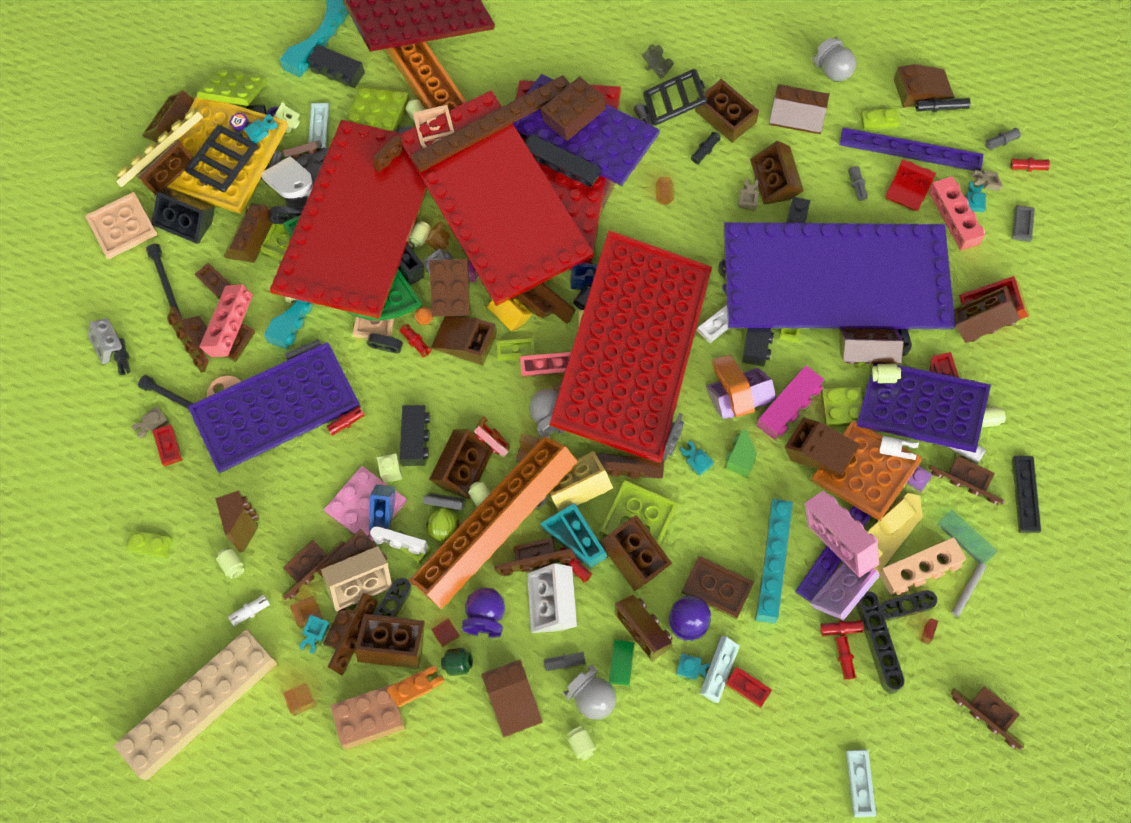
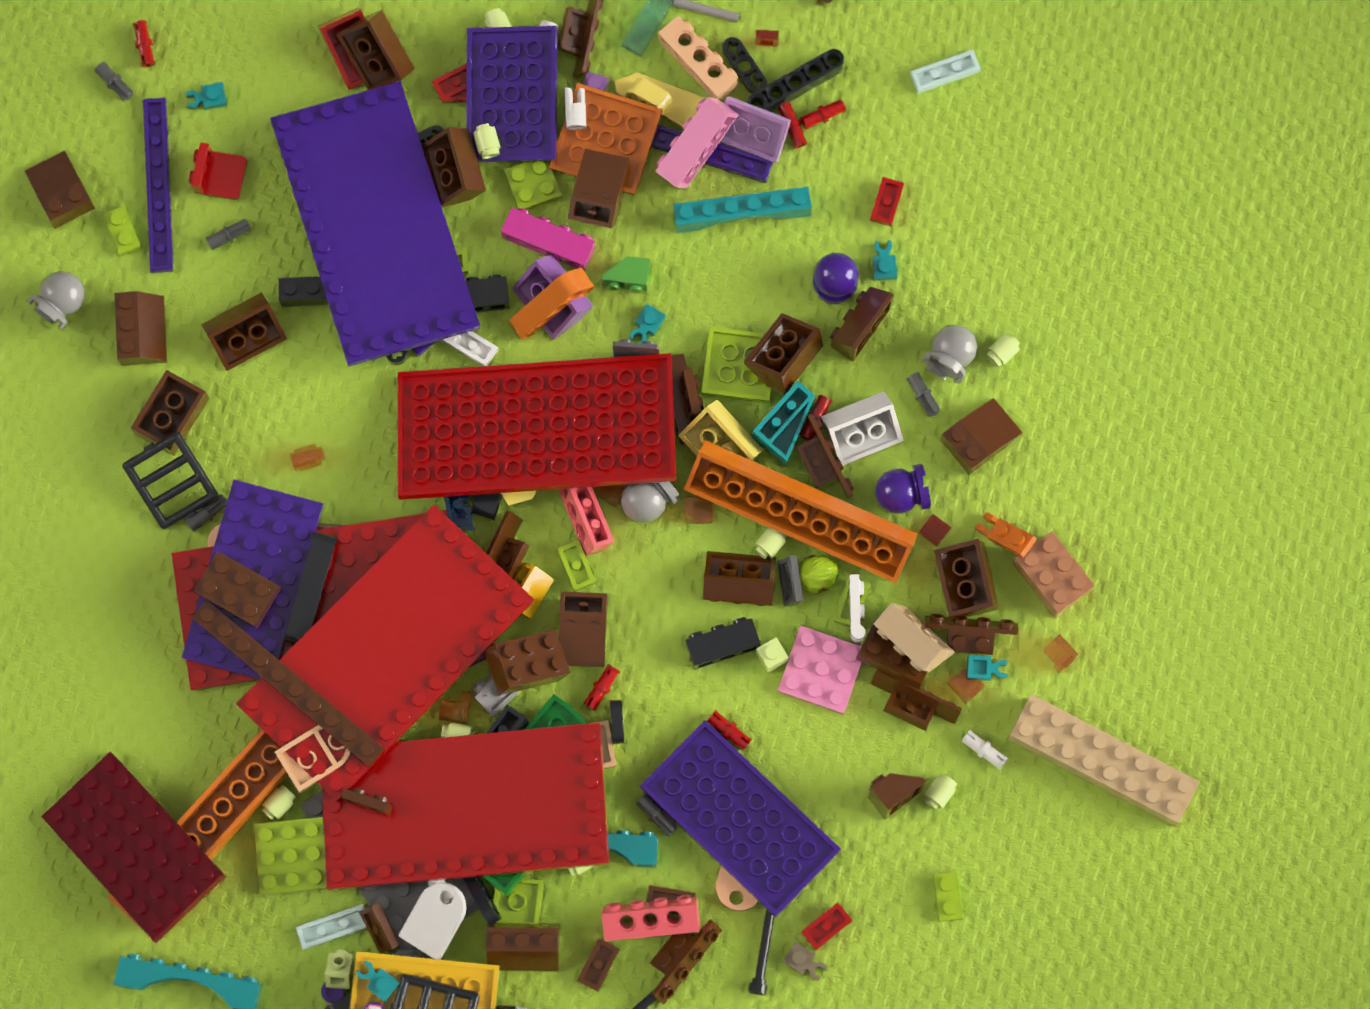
camera: 110 degrees left, 10 degrees up
(336, 66) = (238, 937): black brick -> none
(381, 506) = (824, 641): blue slope -> none
(394, 589) = (920, 589): black beam -> none
(423, 315) = (565, 689): orange plate -> none
(457, 661) = (963, 503): dark green head -> none
(492, 437) = (697, 554): wing -> none
(621, 662) = (905, 335): green slope -> none
(656, 62) = (117, 520): clear smoke hips -> none
(705, 148) = (228, 426): black pin -> none
(718, 587) = (790, 261): reddish brown plate -> none
(719, 669) = (878, 234): light aqua tile -> none
(748, 196) = (286, 356): dark tan plate -> none
(944, 104) = (85, 168): black pin -> none
(956, 222) = (235, 124): coral brick -> none
(989, 179) = (182, 86): dark tan plate -> none
(1023, 223) = (228, 37): dark grey tile -> none

